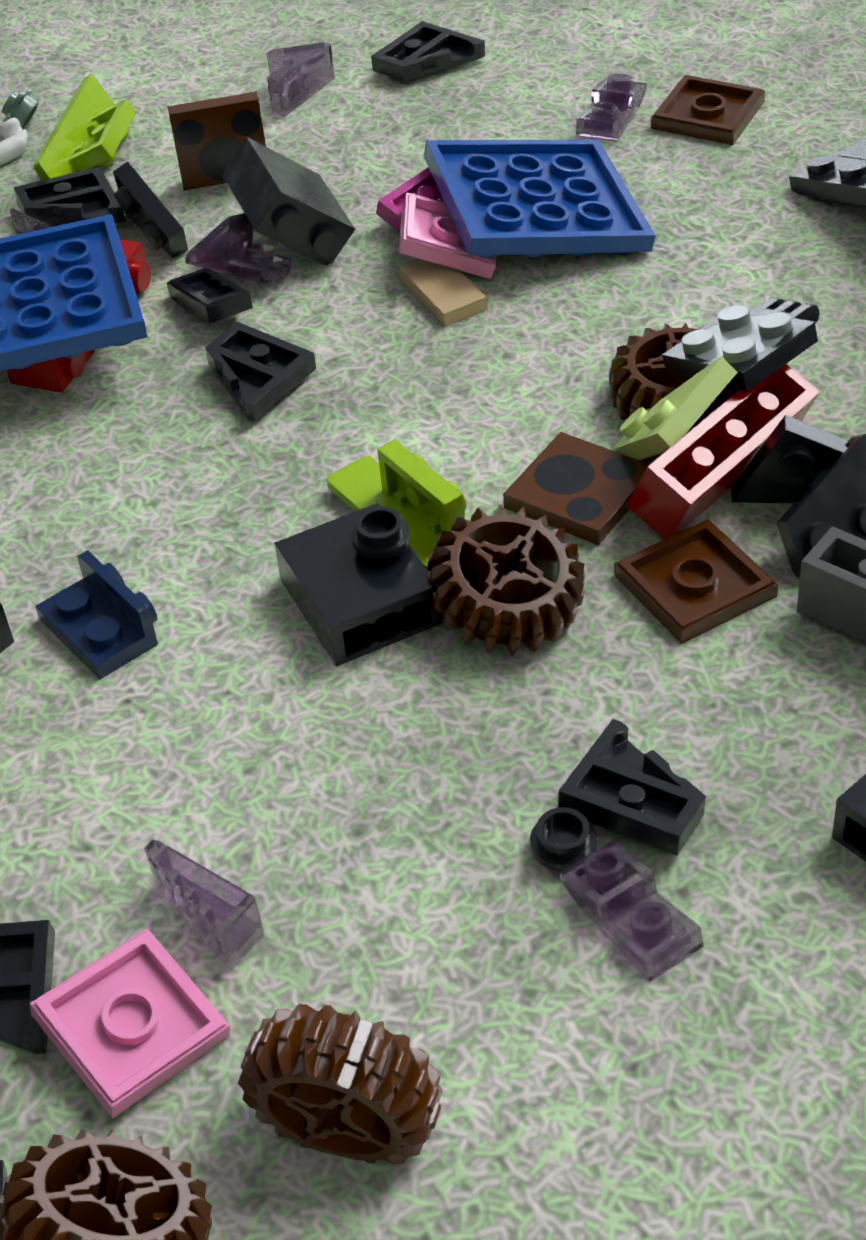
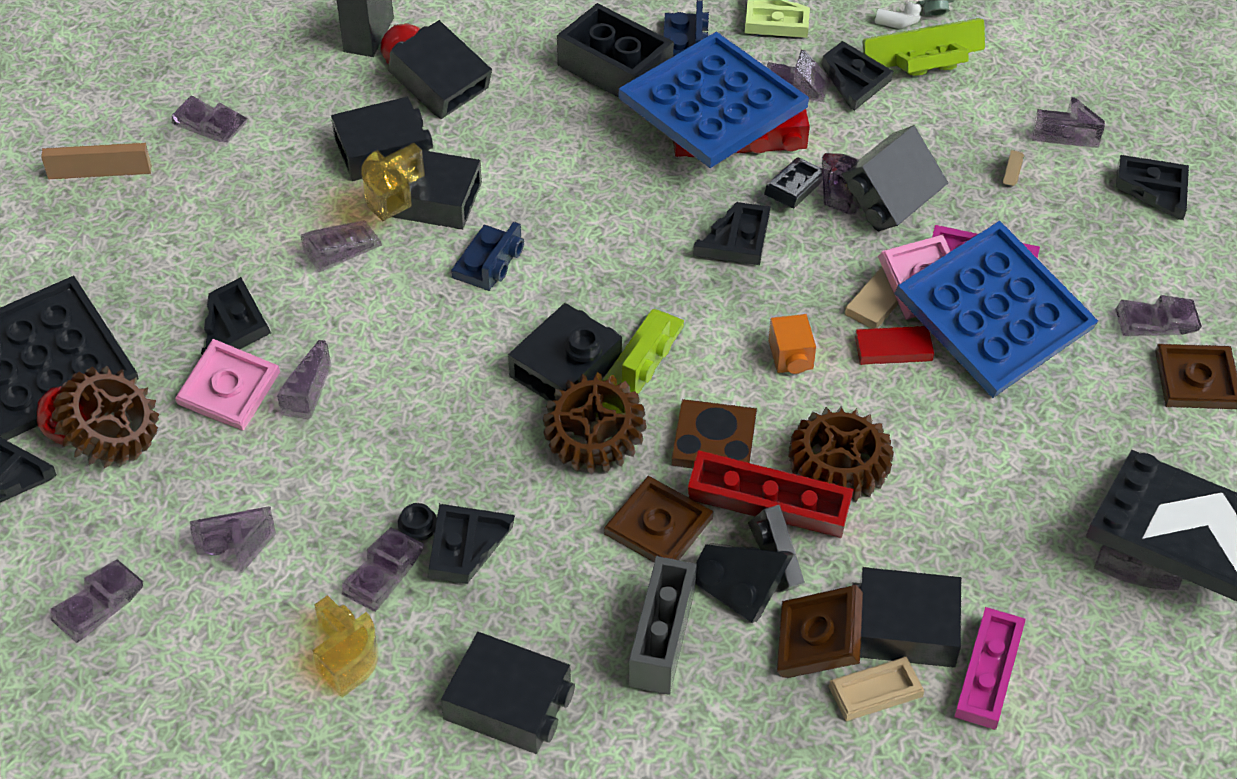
camera: 60 degrees right, 5 degrees up
(148, 211) = (852, 109): black wing -> none
(211, 134) = (943, 116): reddish brown tile -> none
(321, 131) = (1013, 167): none -> tan tile
(341, 1084) = (203, 471): reddish brown gear -> none
(478, 1079) = (244, 530): none -> clear purple slope
(479, 369) = (792, 343): none -> orange brick
(525, 298) = (894, 345): none -> red tile
(670, 419) = (769, 450): yellowish green wing -> none
(749, 340) = (860, 467): piece -> none
(786, 977) = (350, 651): none -> clear yellow brick

